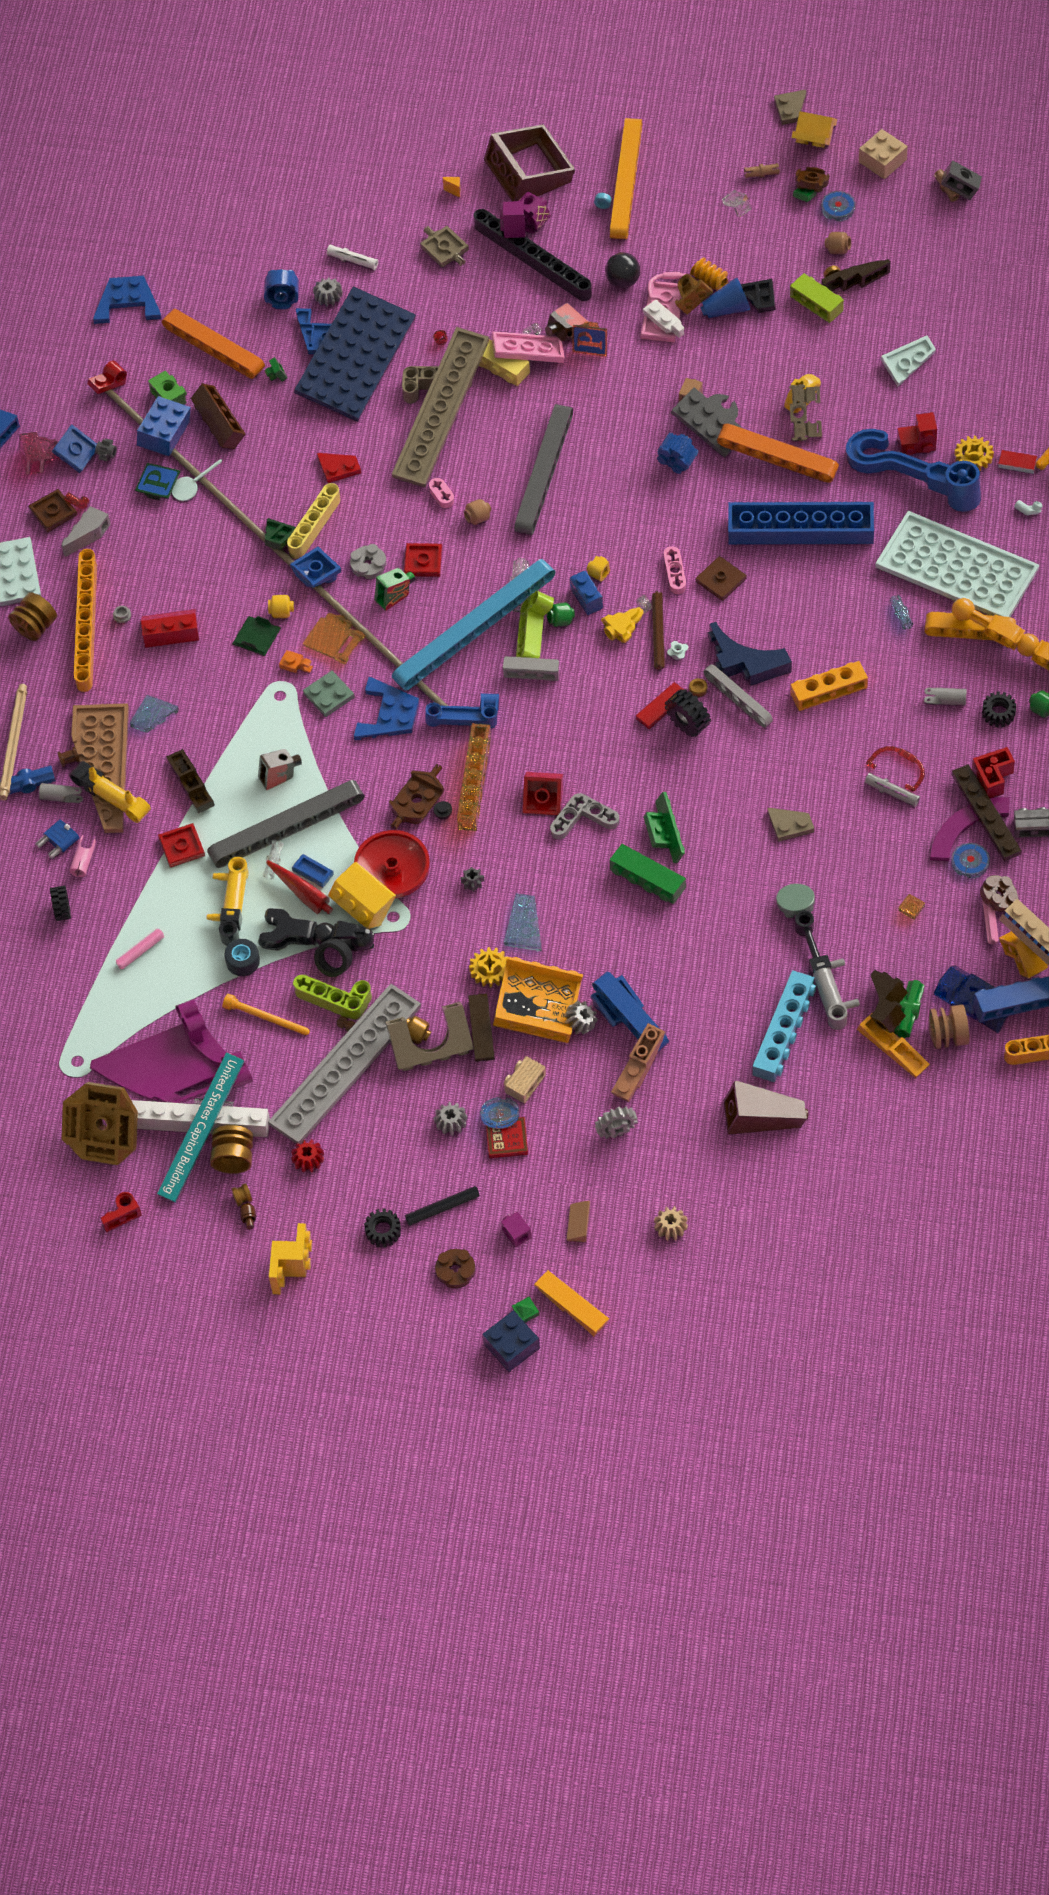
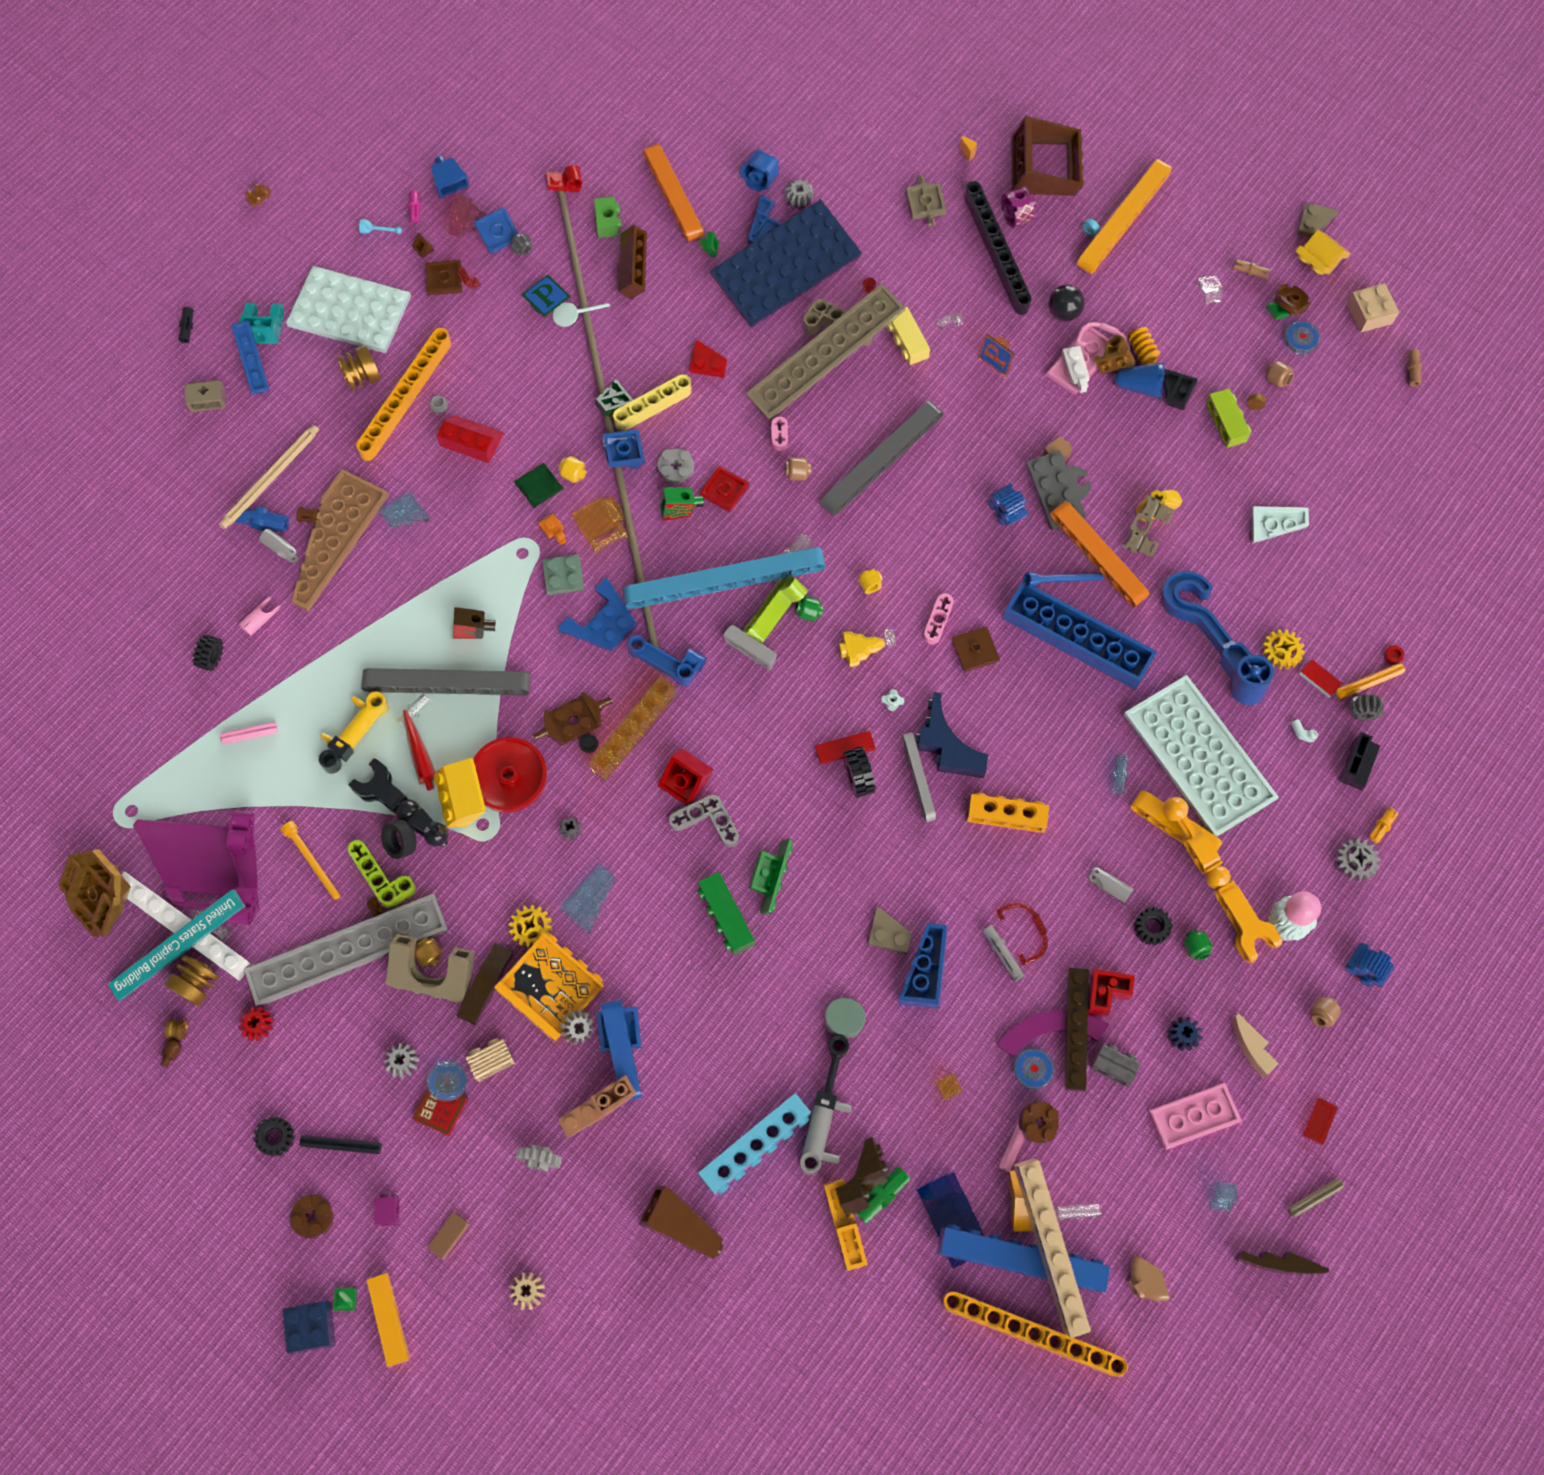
camera: 25 degrees right, 10 degrees up
(13, 494) = (422, 246): none -> reddish brown slope
(60, 836) = (254, 587): blue piece -> none
(89, 529) = (459, 311): light grey slope -> none
(96, 783) = (314, 569): yellow piece -> none
(123, 1213) = (66, 987): red plate -> none
(124, 293) = (631, 109): blue wing -> none
(163, 426) = (580, 247): blue brick -> none
(181, 845) = (347, 652): red tile -> none
(190, 781) = (393, 595): dark brown slope -> none
(242, 957) = (323, 785): black wheel -> none
(290, 1259) = (174, 1125): yellow bracket -> none
(312, 870) = (441, 740): blue tile -> none
(346, 255) = (829, 158): white pin -> none
(513, 219) = (995, 206): magenta brick -> none
(527, 347) = (937, 333): bright pink tile -> none
(561, 322) = (983, 323): torso -> none
(586, 592) = (844, 599): blue brick -> none
(658, 630) = (887, 671): reddish brown axle -> none
(698, 687) = (889, 747): pearl gold tile -> none
(736, 496) = (1032, 579): none -> blue piece
(842, 836) = (926, 974): none -> blue wedge
(860, 274) = (1282, 415): dark brown slope -> none
(920, 437) = (1240, 606): red brick -> none
(950, 1026) = (905, 1241): medium nougat wheel -> none
(961, 180) = (1430, 370): dark grey brick -> none

